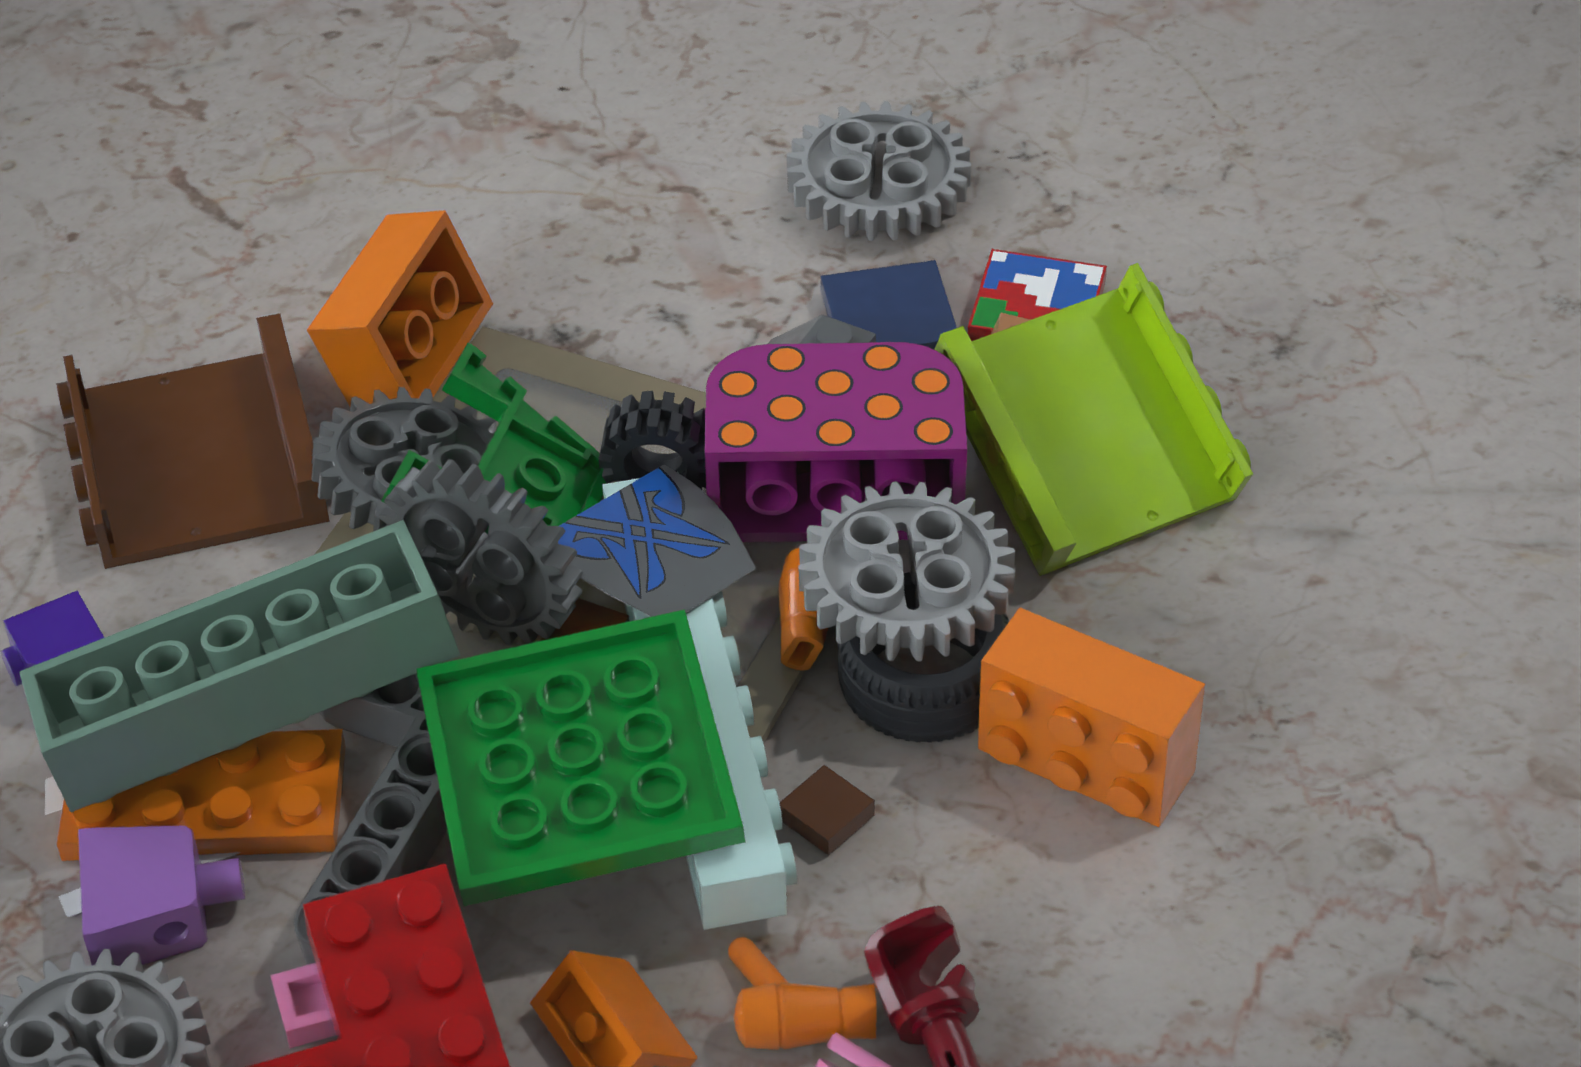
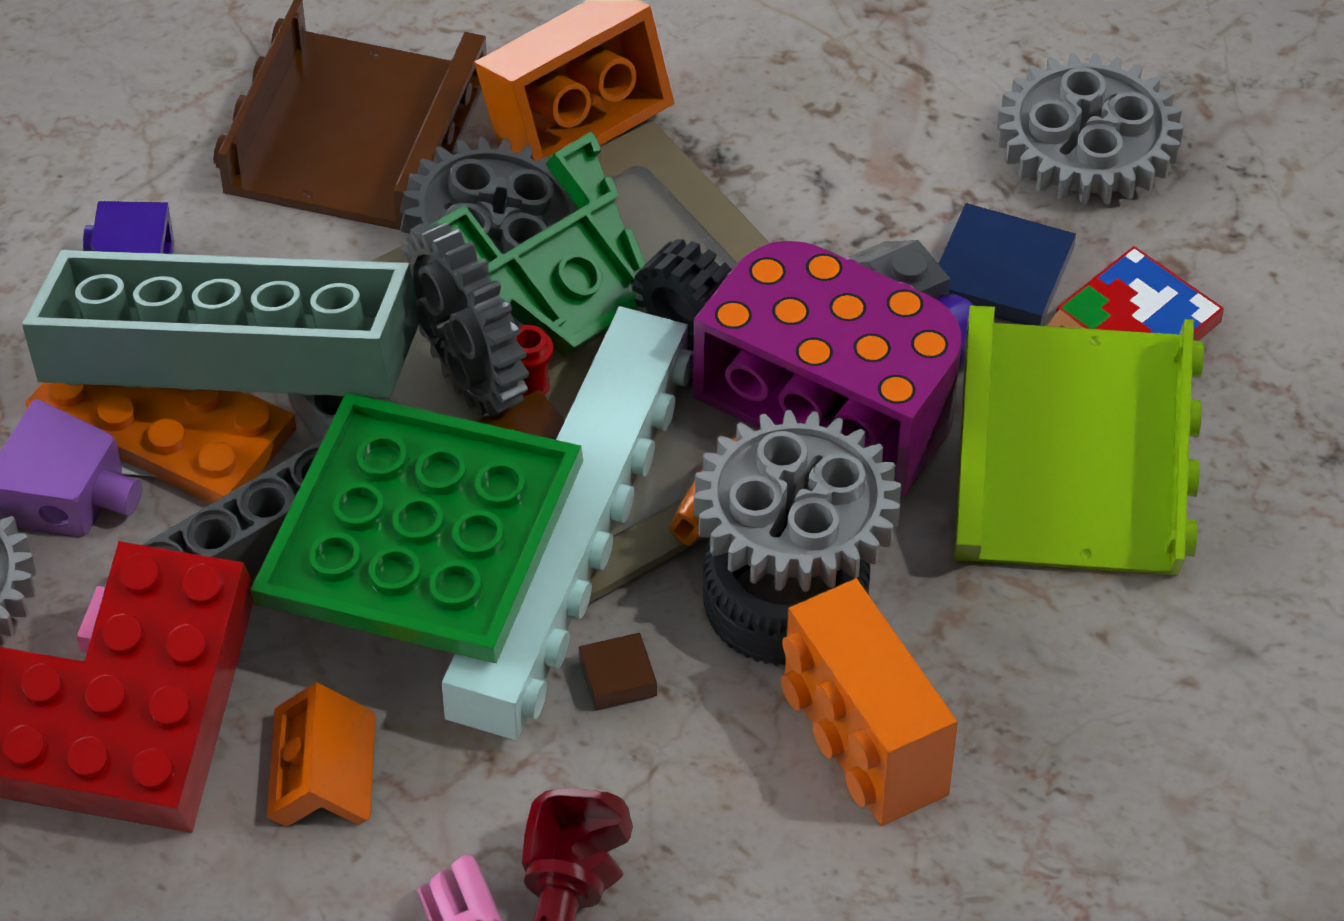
camera: 30 degrees right, 5 degrees up
(657, 545) = (615, 379): sticker -> none
(792, 1014) = (460, 824): orange piece -> none

